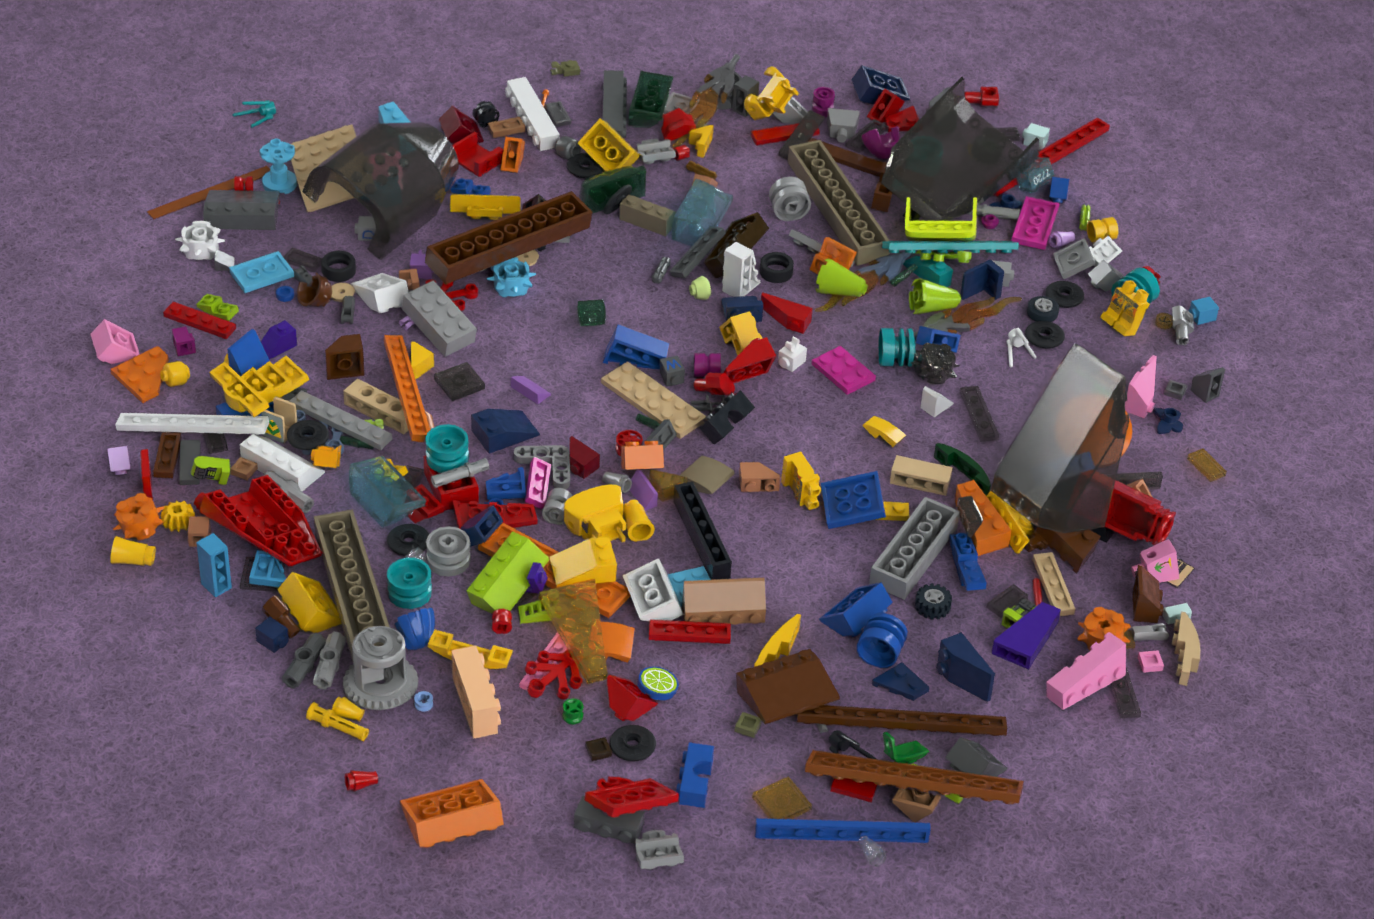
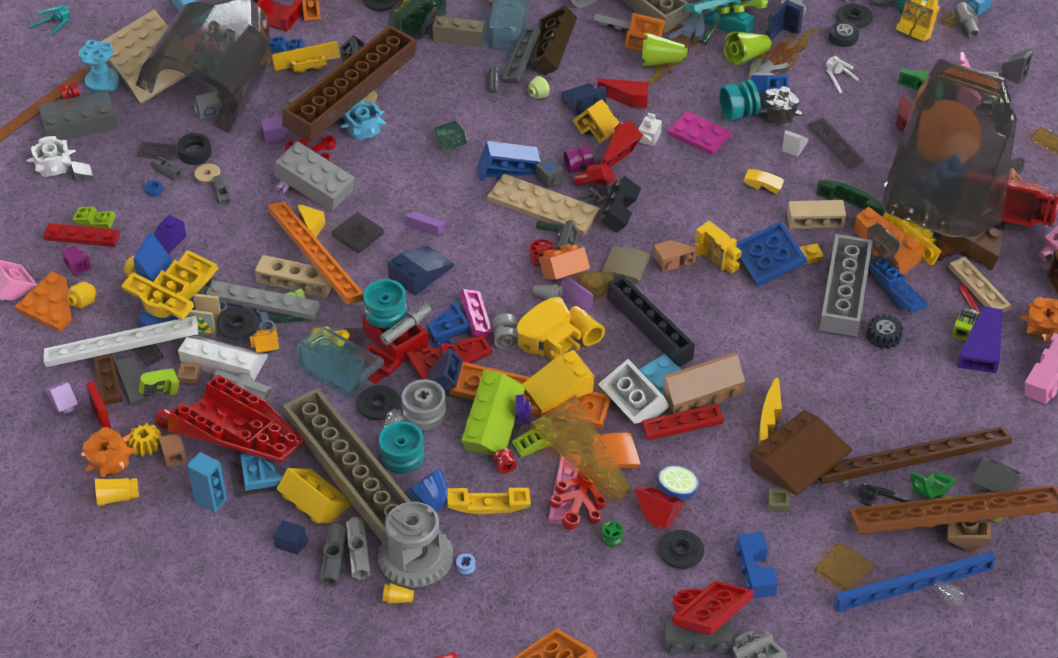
camera: 15 degrees left, 5 degrees up
(261, 272) = (122, 172): medium azure plate -> none
(278, 611) = (288, 512): reddish brown piece -> none
(315, 295) = (186, 179): reddish brown helmet -> none
(328, 718) = (382, 609): yellow pin -> none
(345, 357) = (243, 237): reddish brown slope -> none
(381, 291) = (247, 163): white slope -> none
(411, 278) = (269, 144): nougat bracket -> none
(475, 691) = (515, 541): light nougat brick -> none
(556, 460) = (480, 285): light grey beam -> none
(582, 458) = (505, 278): dark red slope -> none
(598, 749) = (652, 564): dark brown tile -> none
(739, 270) = (569, 63): white wedge -> none
(776, 276) = (596, 60): black tyre -> none
(856, 608) = (822, 358): blue slope -> none
(858, 790) = (903, 536): red tile -> none
(882, 640) = (863, 383): blue wheel -> none
(902, 681) = (894, 417): dark blue wing -> none
(965, 667) = (949, 388): dark blue slope -> none
(1006, 599) = (946, 313): clear smoke tile -> none
(1055, 333) = (865, 58): black wheel -> none

